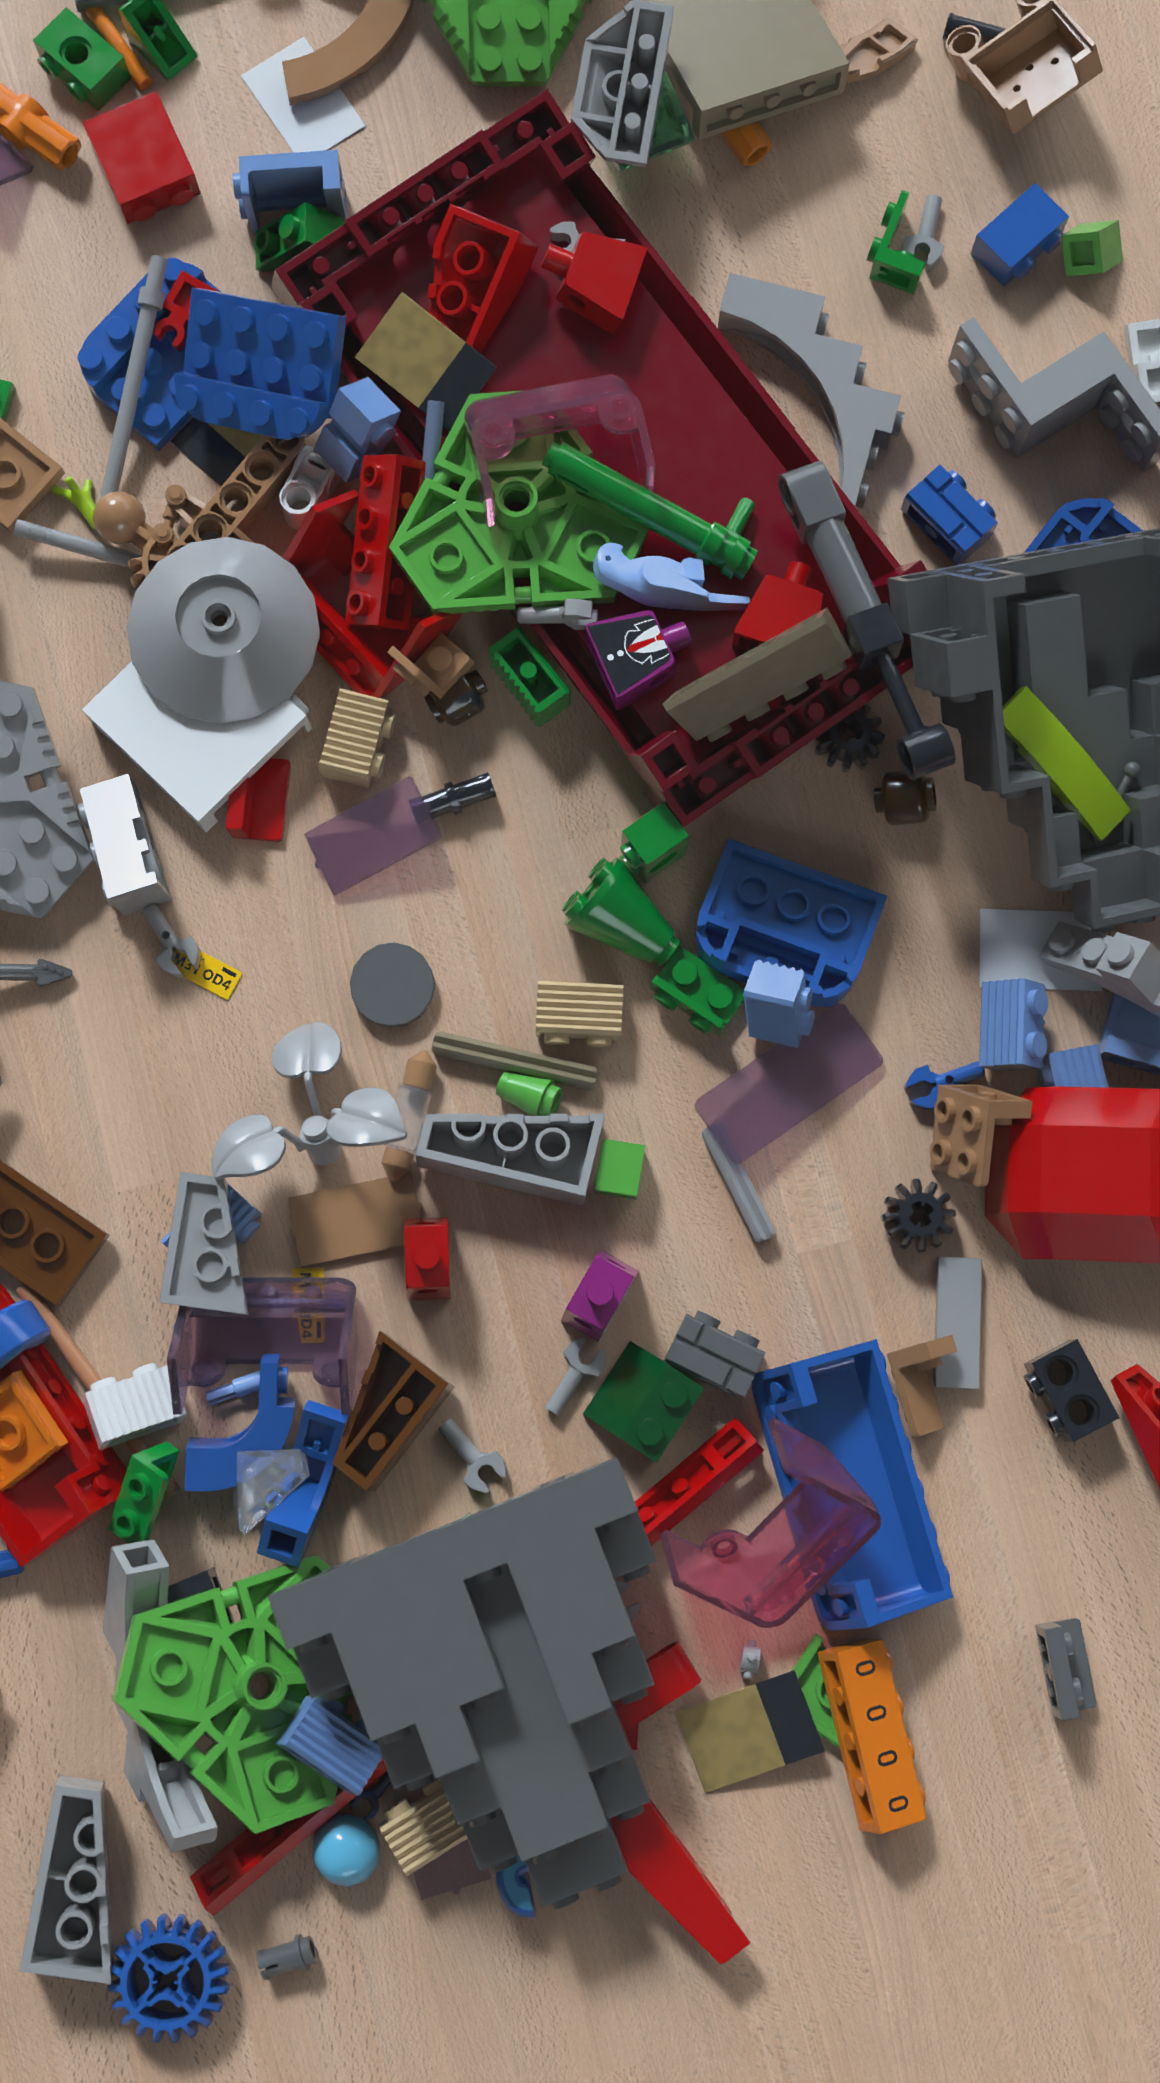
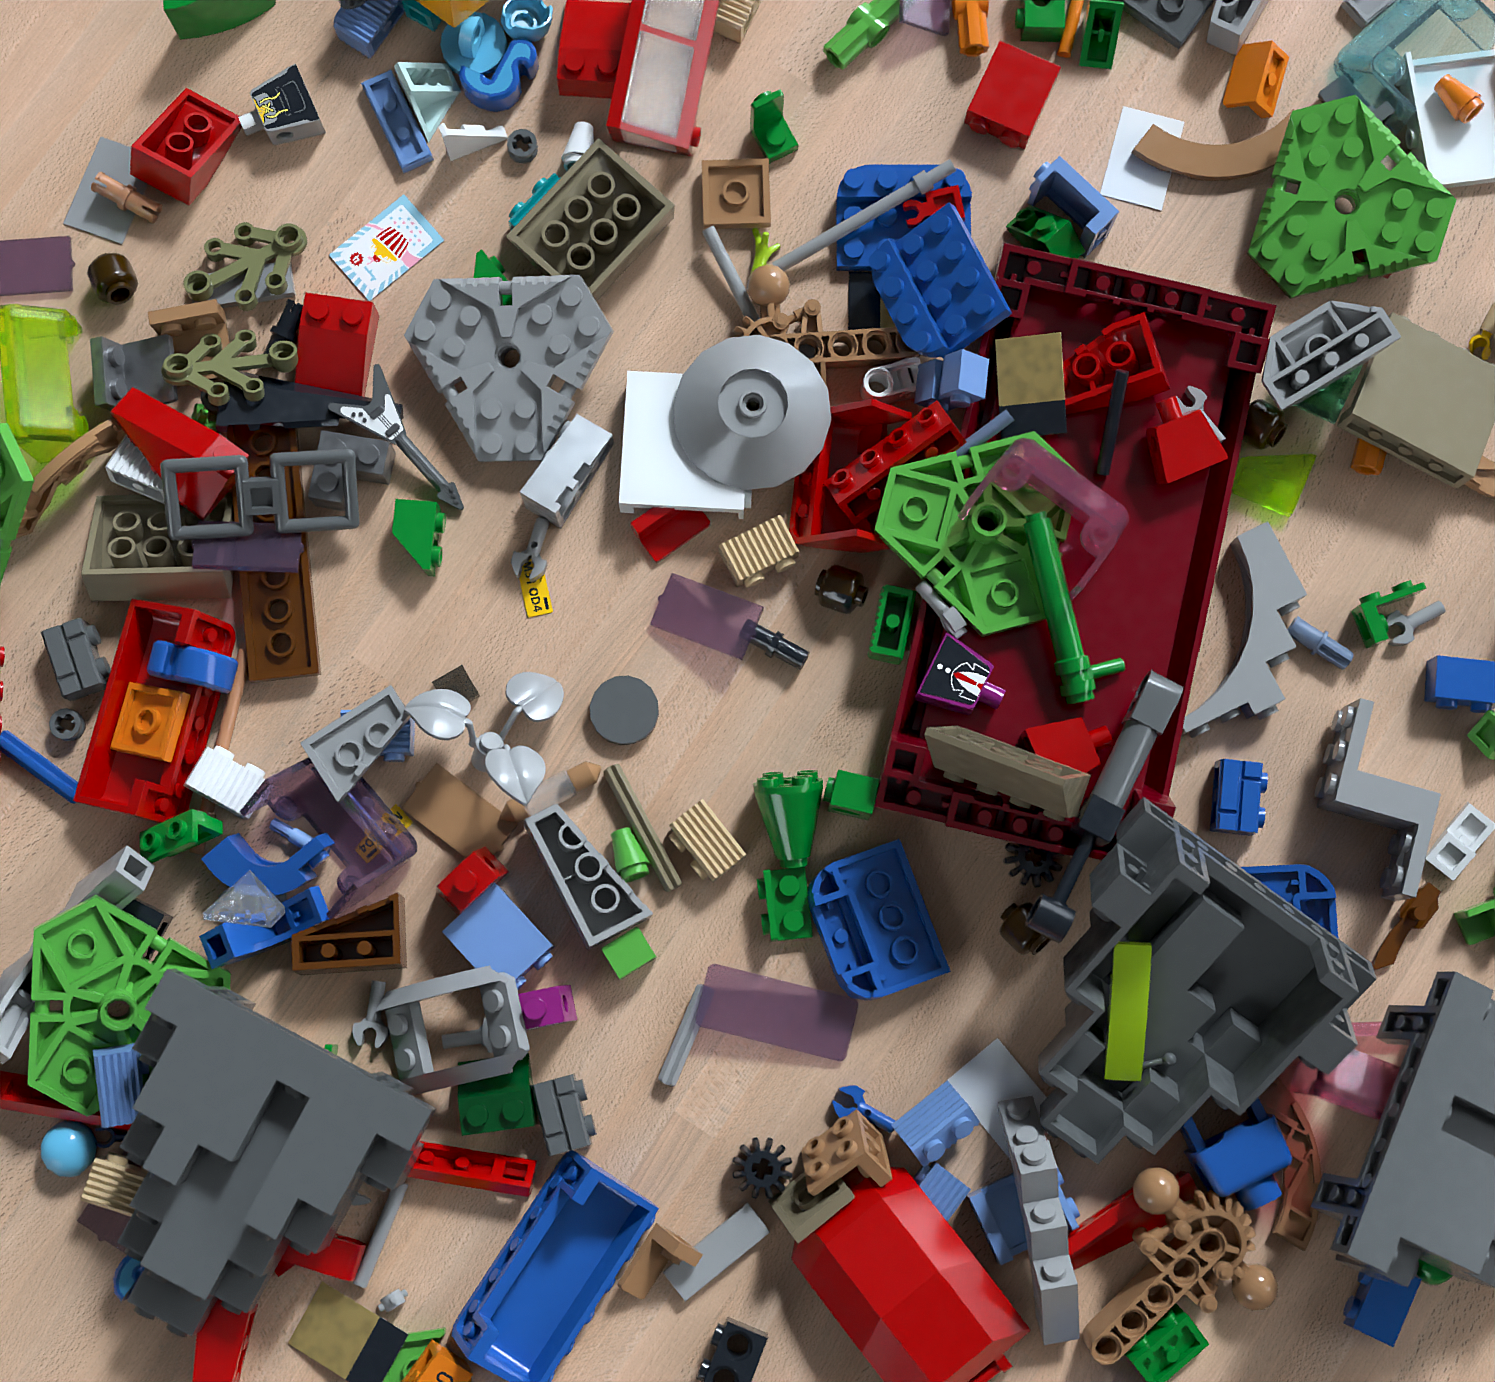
camera: 45 degrees right, 0 degrees up
(55, 1031) = (418, 529): none -> green slope
(229, 1111) = (459, 682): none -> clear smoke tile
(436, 668) = (841, 563): medium nougat bracket -> none
(504, 1277) = (500, 936): none -> medium blue panel
(524, 318) = (1112, 422): none -> black bar
(524, 1438) = (410, 1040): none -> light grey wedge
(642, 202) = (1264, 425): none -> dark brown head
(661, 581) = (1018, 654): light blue animal -> none
(680, 1622) = (379, 1235): none -> light grey bar
(698, 239) = (1273, 480): none -> clear neon green wing
(778, 1004) = (816, 962): medium blue brick -> none
(791, 1550) = (473, 1267): clear pink windscreen -> none
(876, 327) = (1320, 643): none -> sand blue axle
(989, 1209) = (805, 1213): none -> dark tan tile

